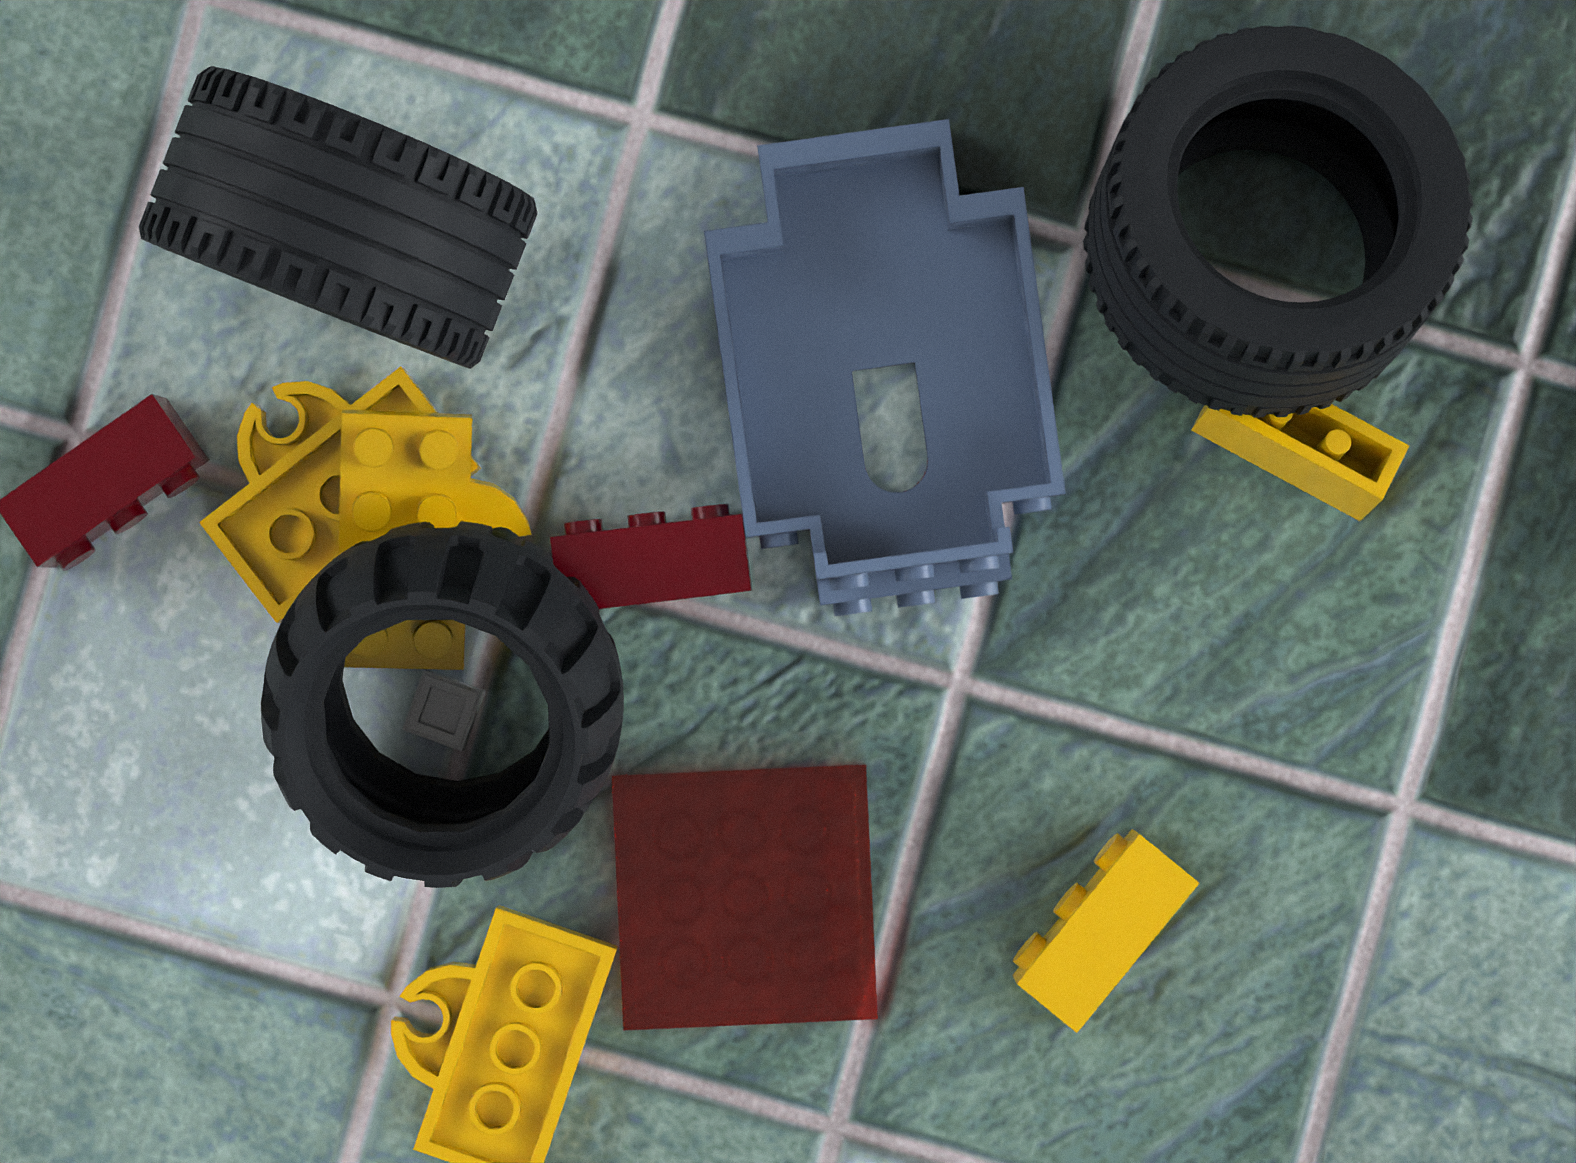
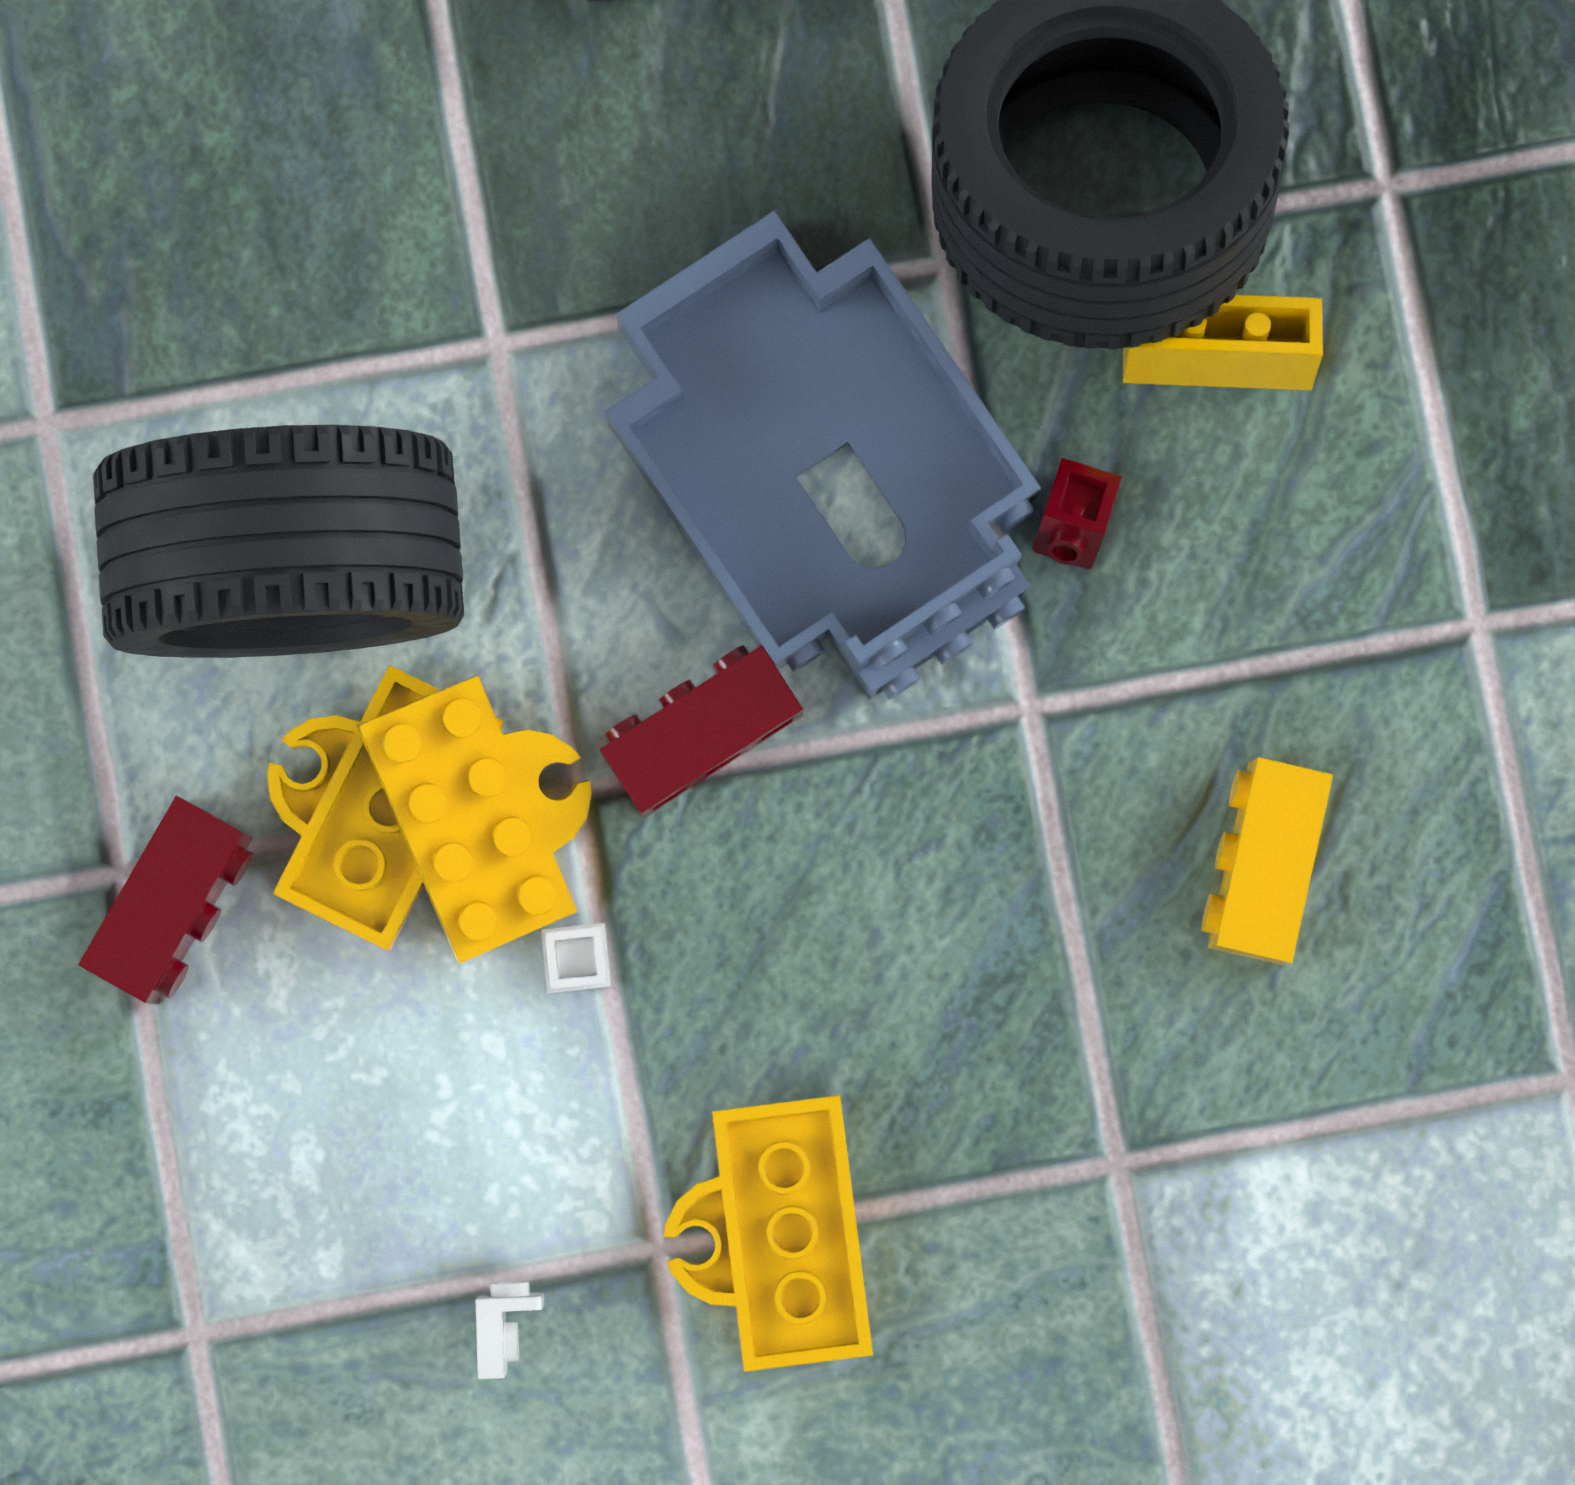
camera: 25 degrees left, 5 degrees down
(210, 1011) = (495, 1337): none -> white bracket
(421, 822) = (610, 1057): black tyre -> none
(744, 896) = (932, 993): clear red plate -> none
(1089, 530) = (1076, 514): none -> dark red bracket

